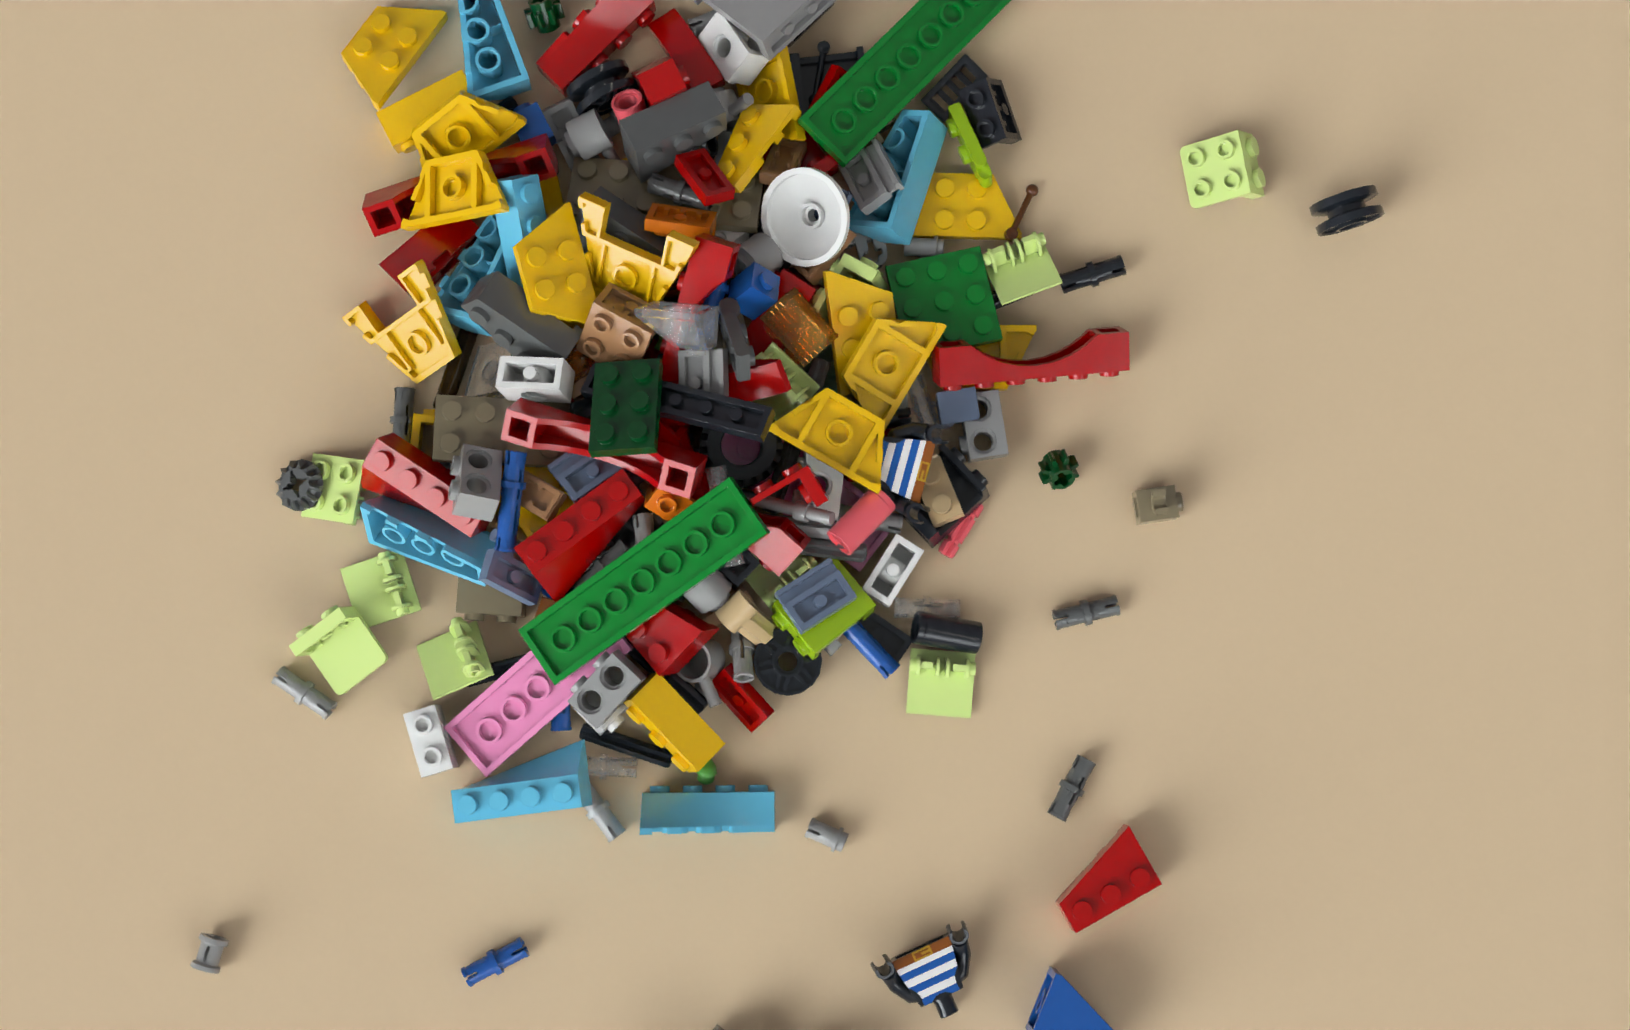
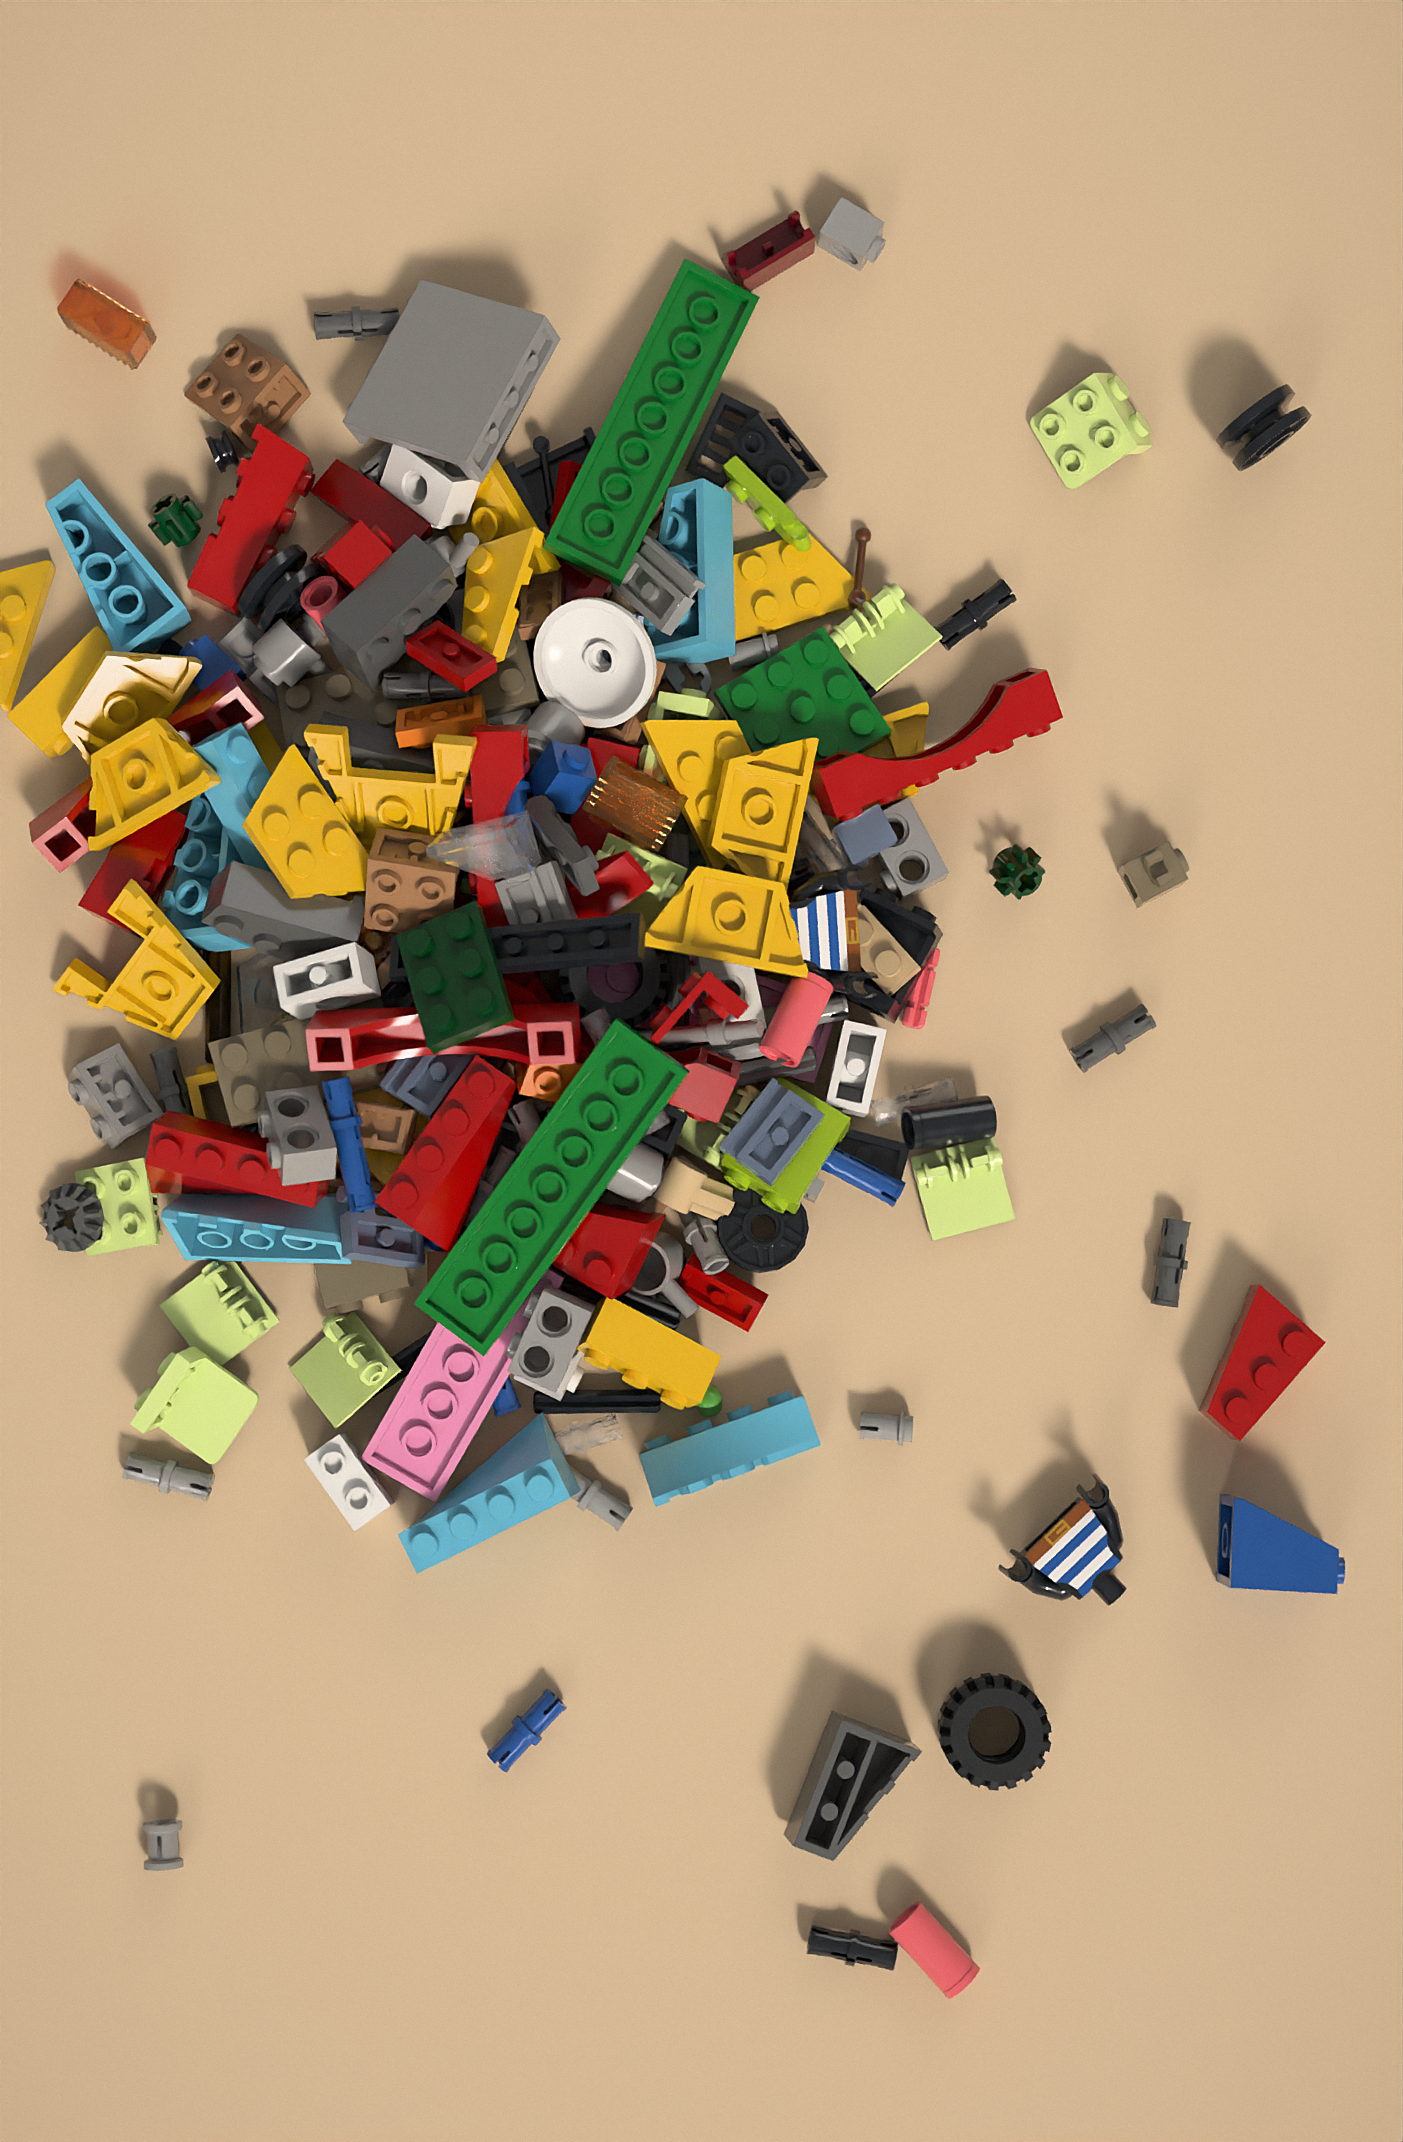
camera: 20 degrees left, 0 degrees up
(358, 408) = (113, 1095): none -> light grey bracket

